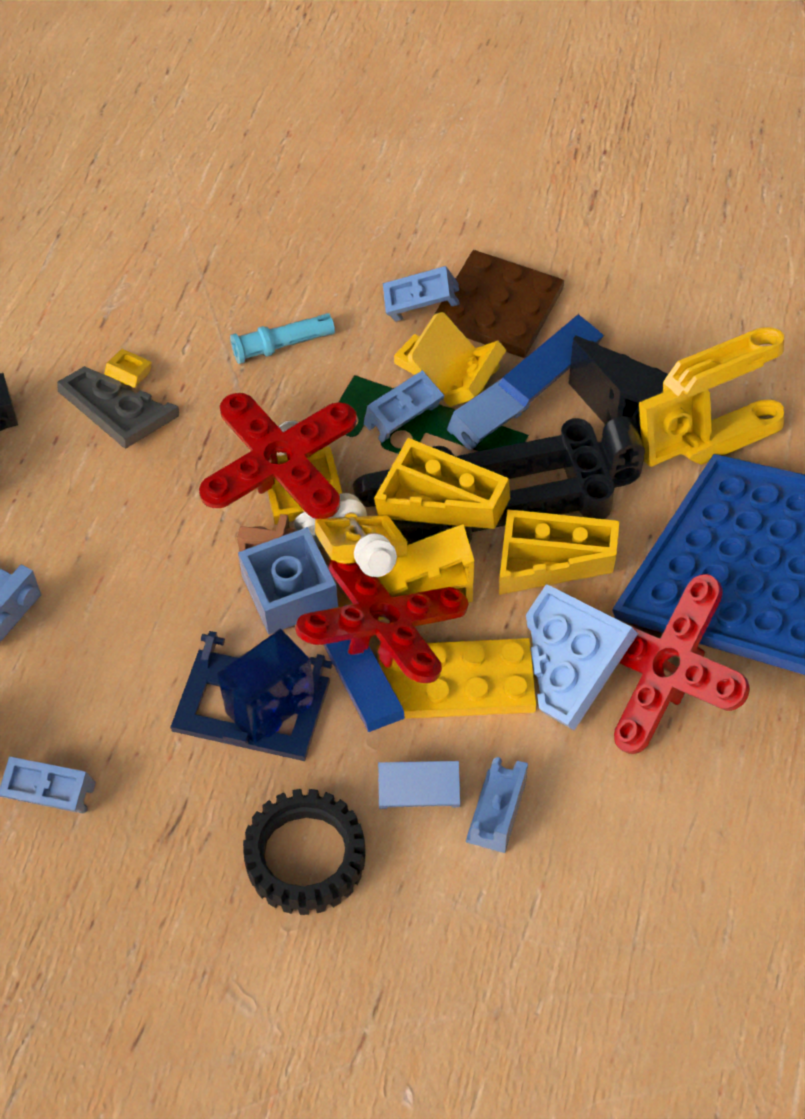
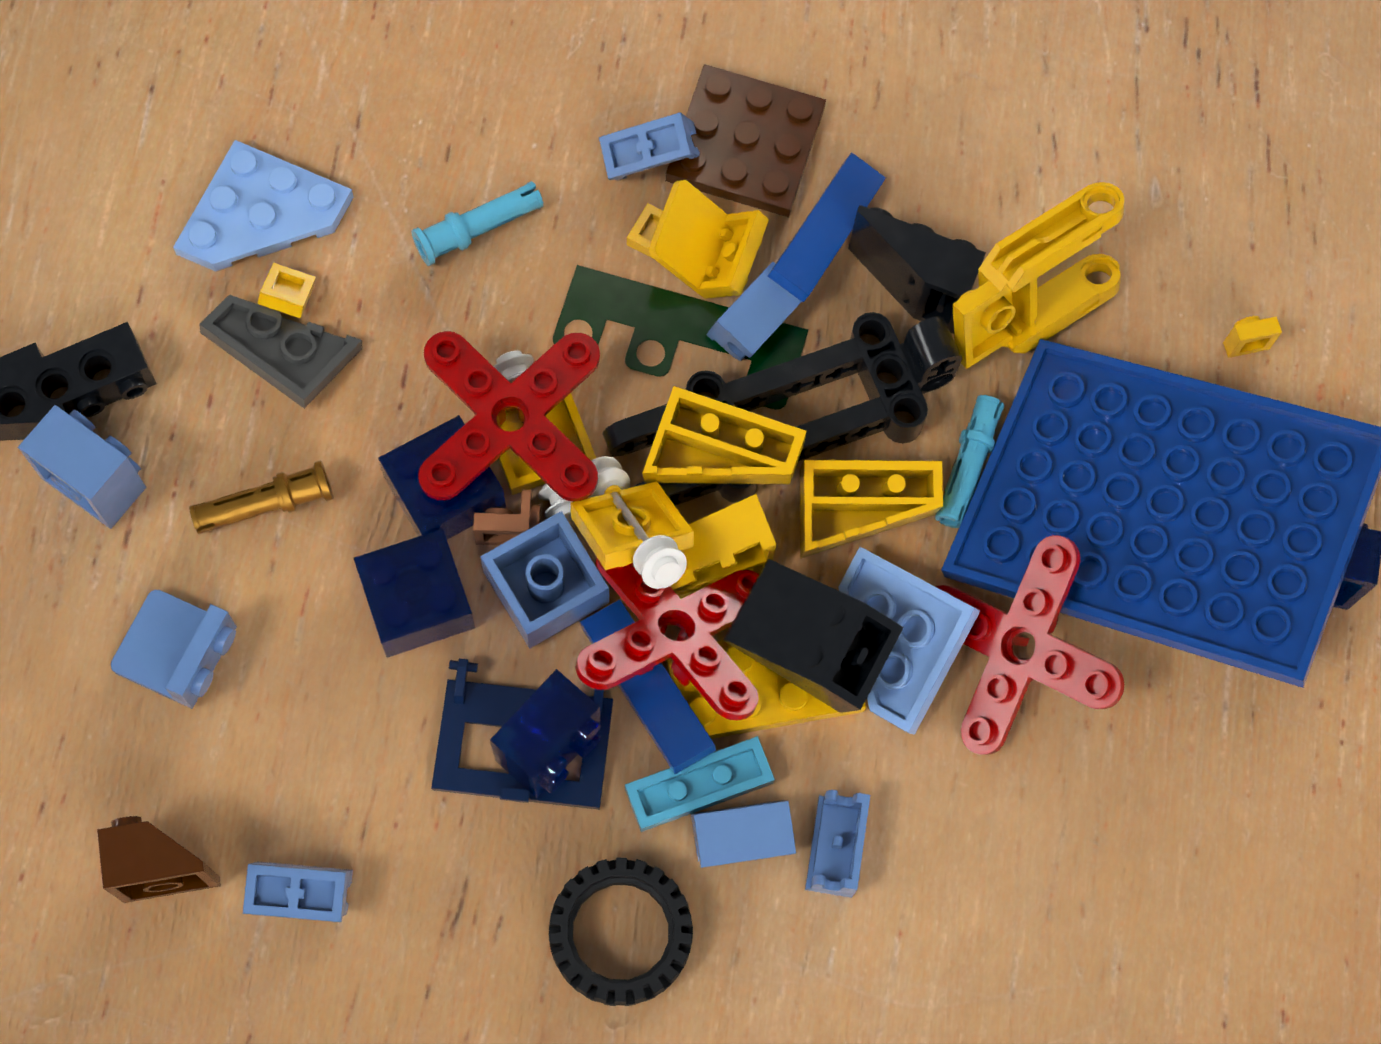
camera: 15 degrees left, 15 degrees up
(96, 504) = (282, 493): none -> pearl gold pin
(119, 315) = (259, 209): none -> light blue plate
(183, 581) = (414, 593): none -> clear blue brick
(214, 528) = (424, 513): none -> clear blue brick
(401, 742) = (701, 785): none -> medium azure plate
(402, 404) = (650, 314): medium blue hinge -> none
(496, 635) = (814, 636): none -> black slope
(651, 524) = (975, 445): none -> medium azure pin

